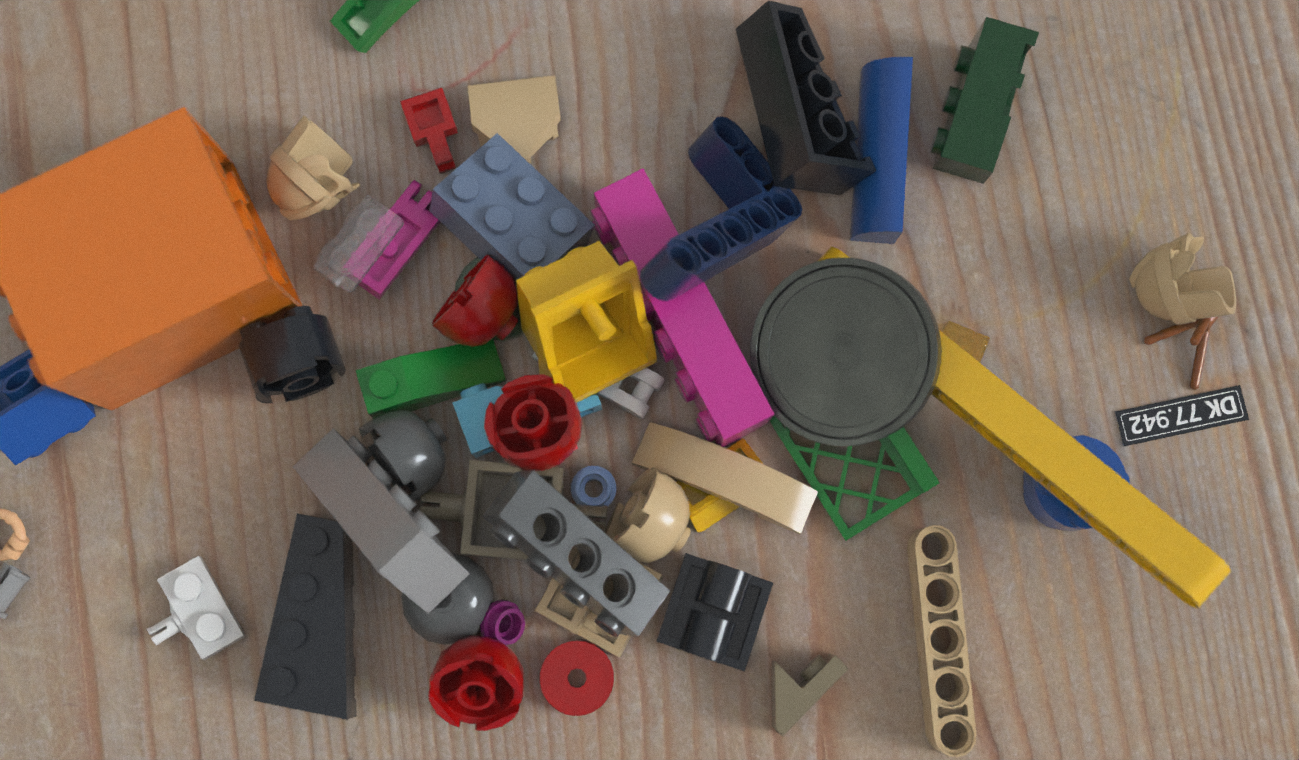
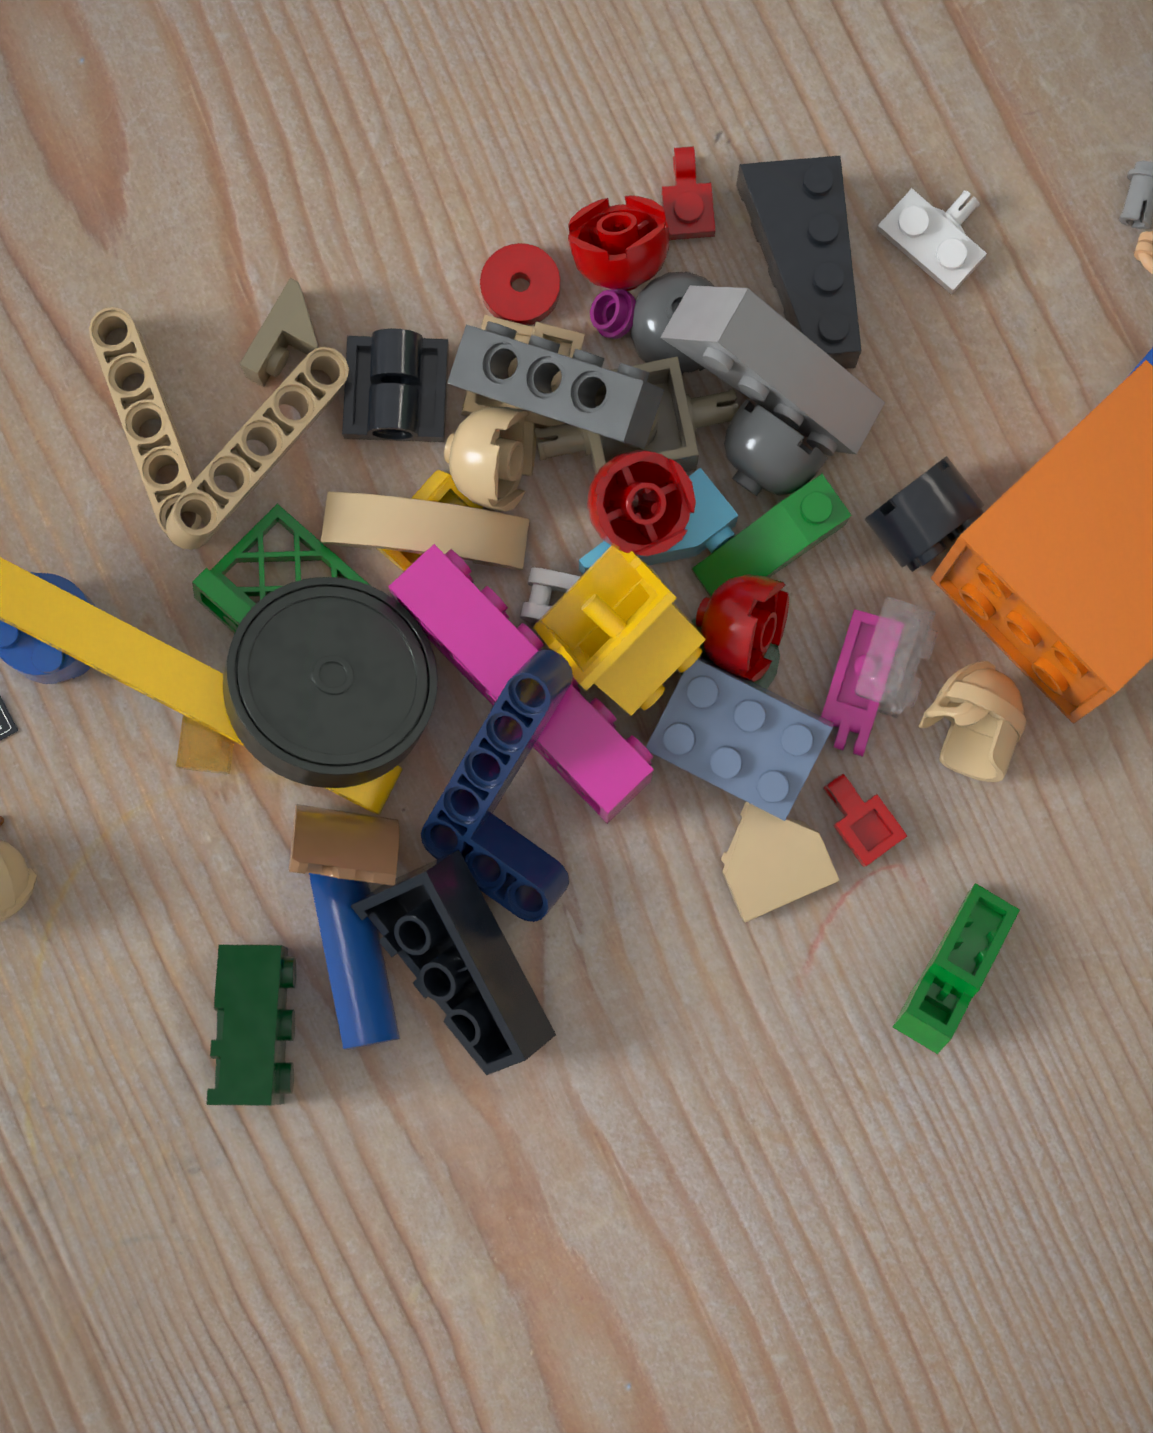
camera: 170 degrees right, 0 degrees up
(405, 706) = (688, 204): none -> red plate
(589, 474) = (561, 465): light blue plate -> none
(829, 588) = (244, 466): none -> tan beam
(870, 214) = (344, 845): none -> medium nougat slope

